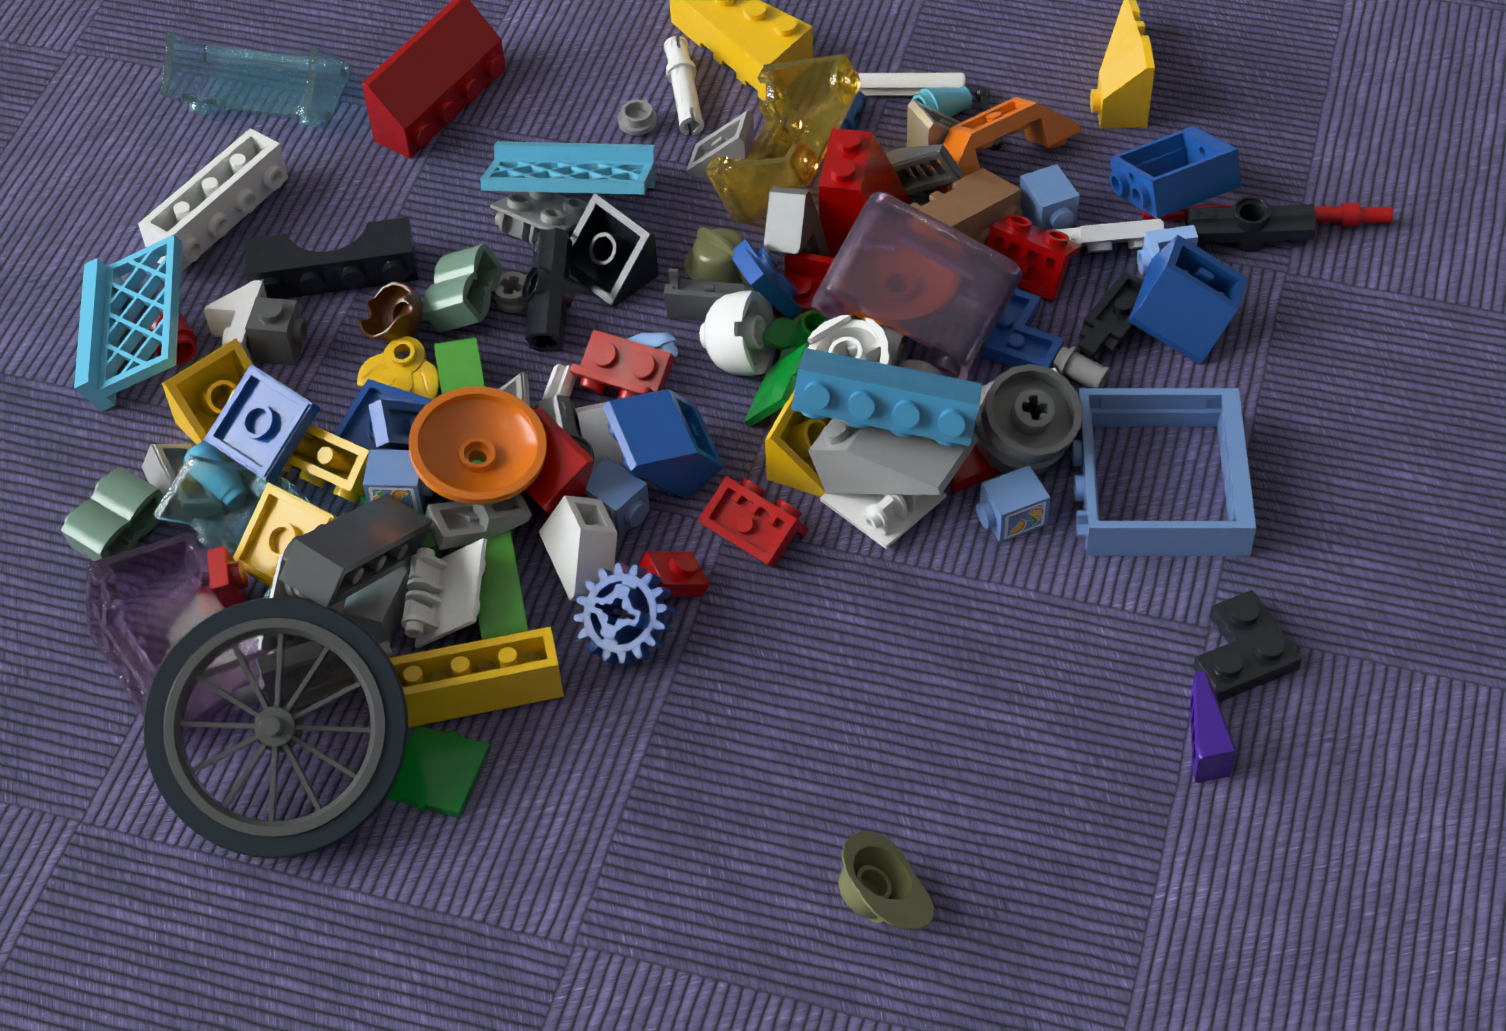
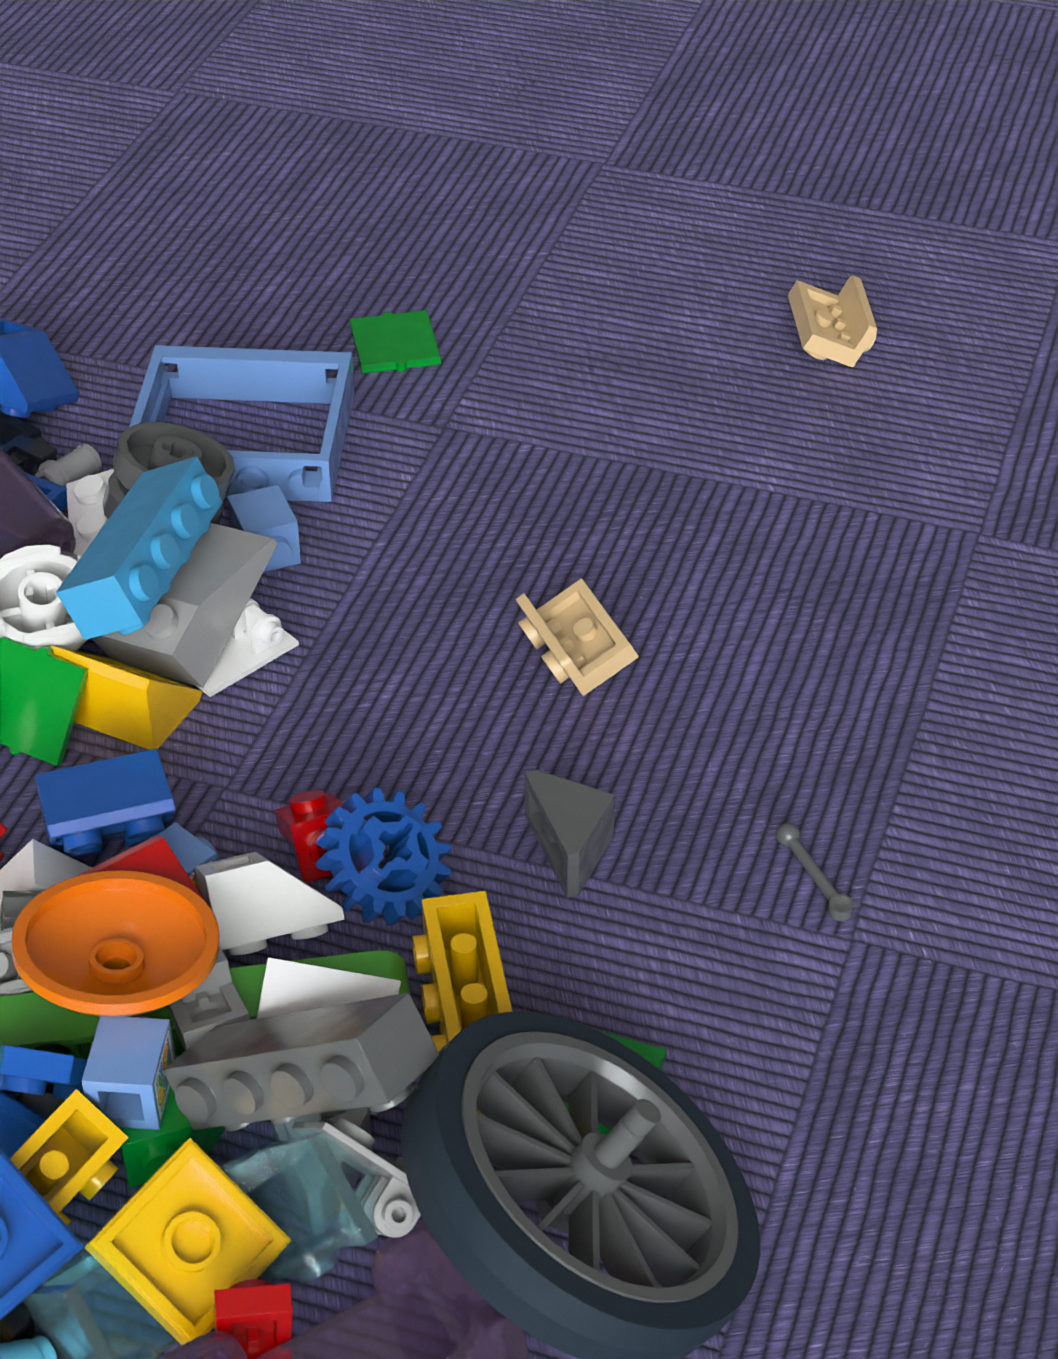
camera: 90 degrees left, 10 degrees down
(605, 934) = (840, 905): none -> dark grey hinge
(666, 736) = (570, 825): none -> dark grey slope
(750, 521) = (240, 747): red bracket -> none
(881, 883) = (790, 656): olive piece -> none
(896, 727) = (579, 635): none -> tan bracket
(1210, 738) = (605, 438): dark purple slope -> none
(1254, 651) = (485, 392): black plate -> none
(1334, 577) = (394, 341): none -> green piece
(1432, 938) = (833, 324): none -> tan bracket

